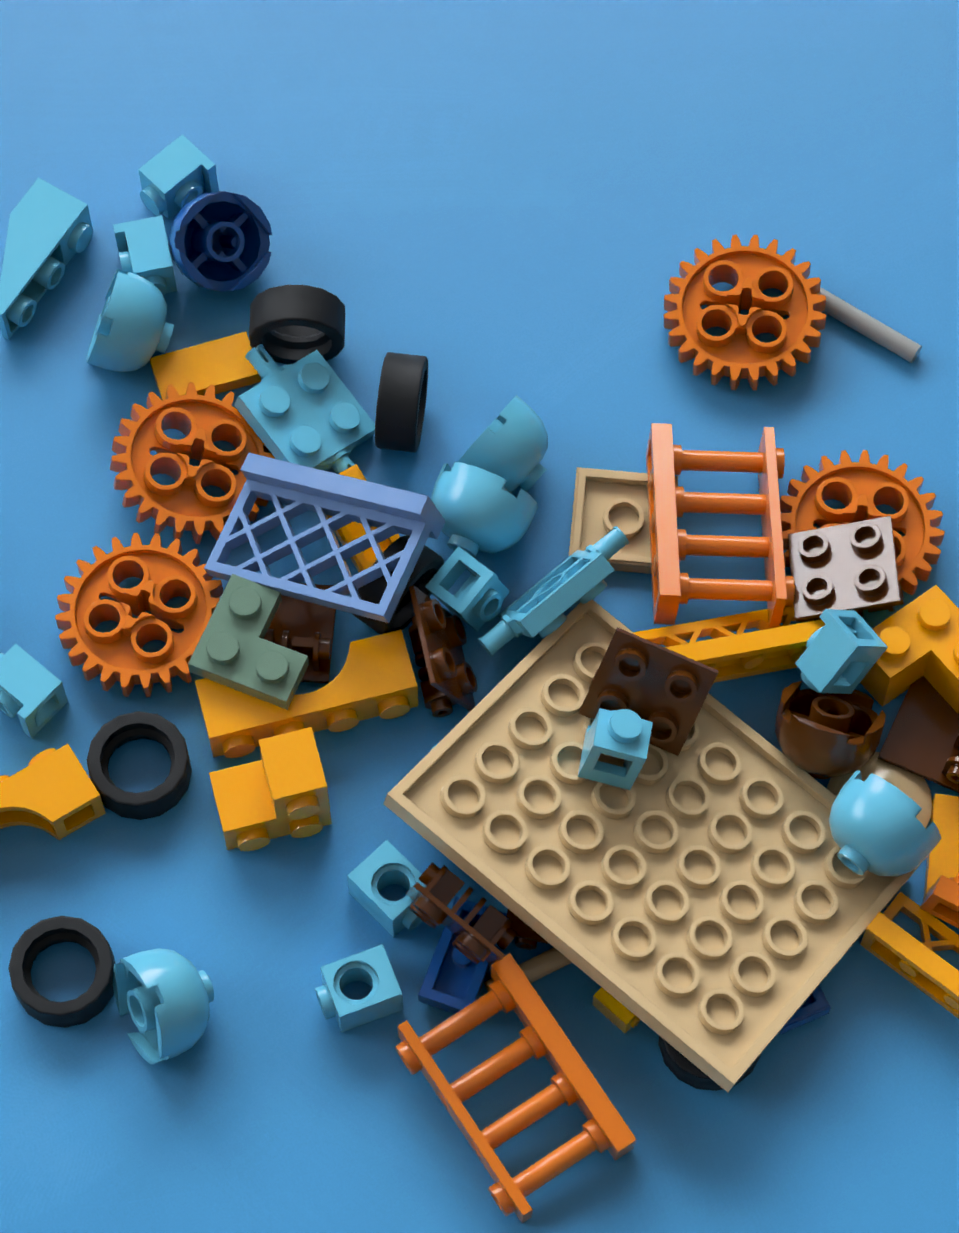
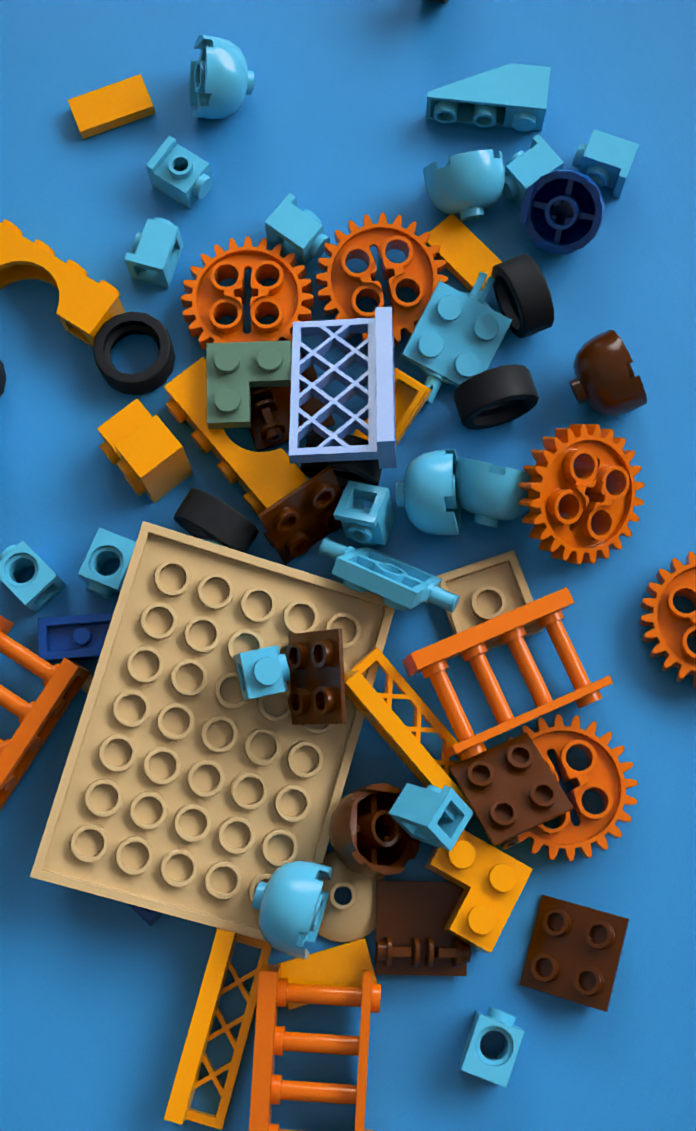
camera: 70 degrees right, 10 degrees up
(83, 524) = (296, 231): none -> medium azure brick
(399, 745) = (215, 520): none -> black tyre
(433, 284) = (606, 376): none -> reddish brown cylinder
(473, 942) = (77, 603): reddish brown hinge -> none
(555, 365) = (592, 496): none -> orange gear

